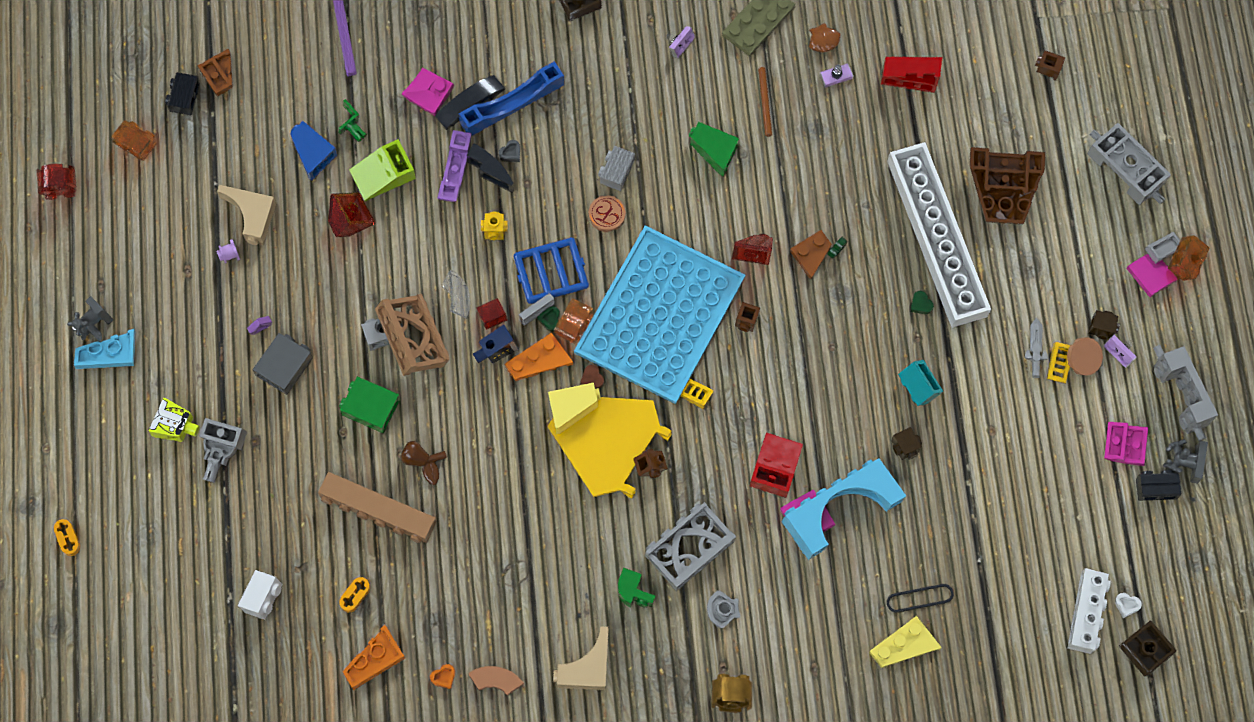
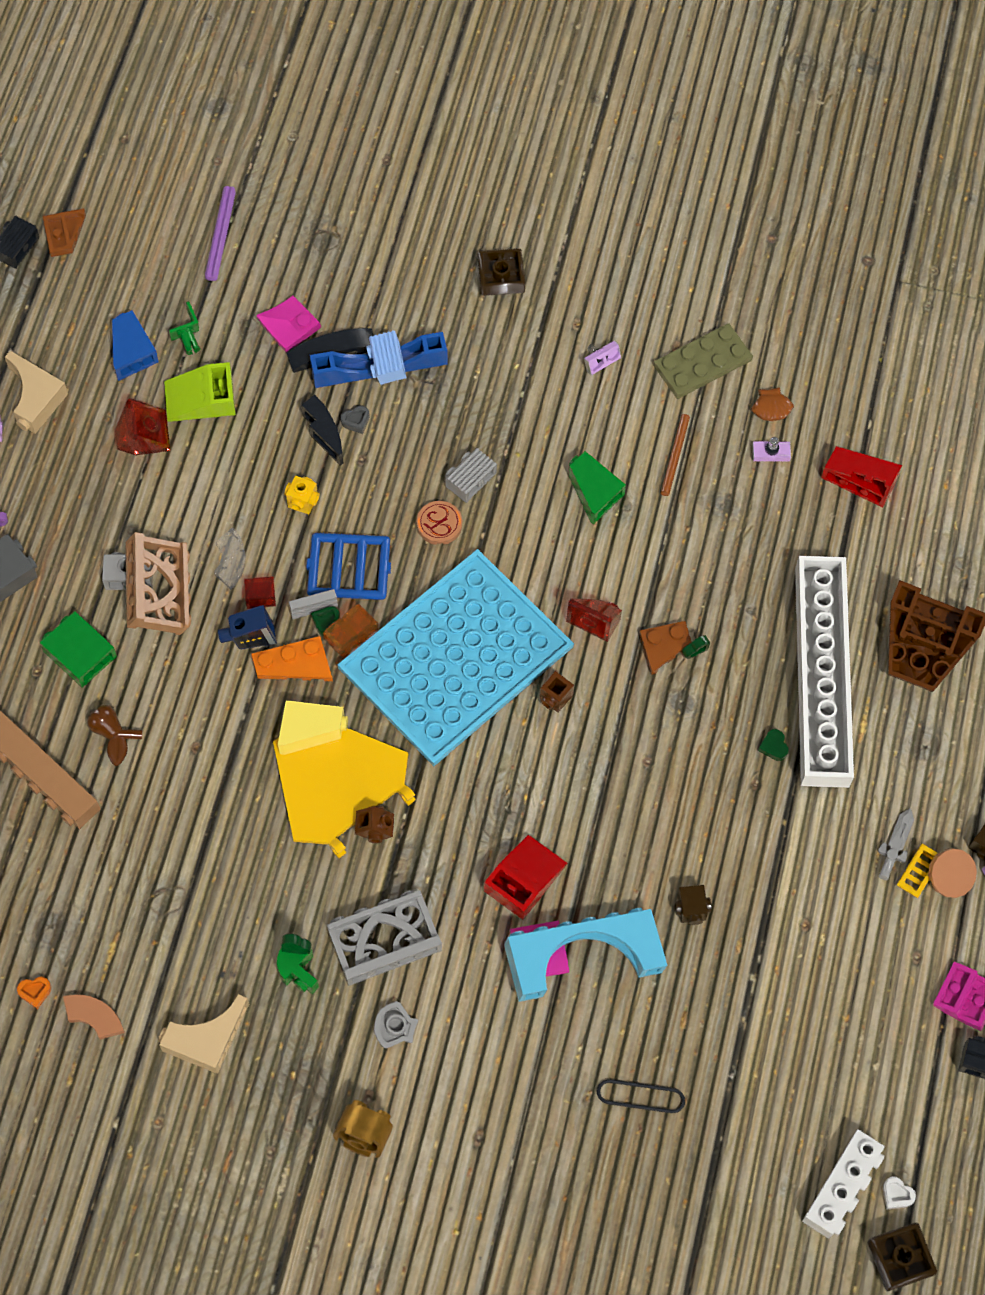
camera: 20 degrees right, 5 degrees down
(455, 166) = (285, 416): medium lavender slope -> none
(519, 96) = (387, 357): none -> light blue brick
(592, 375) = (348, 700): copper tile -> none
(630, 574) = (295, 944): none -> dark green tile
(701, 388) = (469, 773): yellow slope -> none
(905, 643) = (601, 1144): light yellow wing -> none
(920, 383) = (736, 837): teal brick -> none

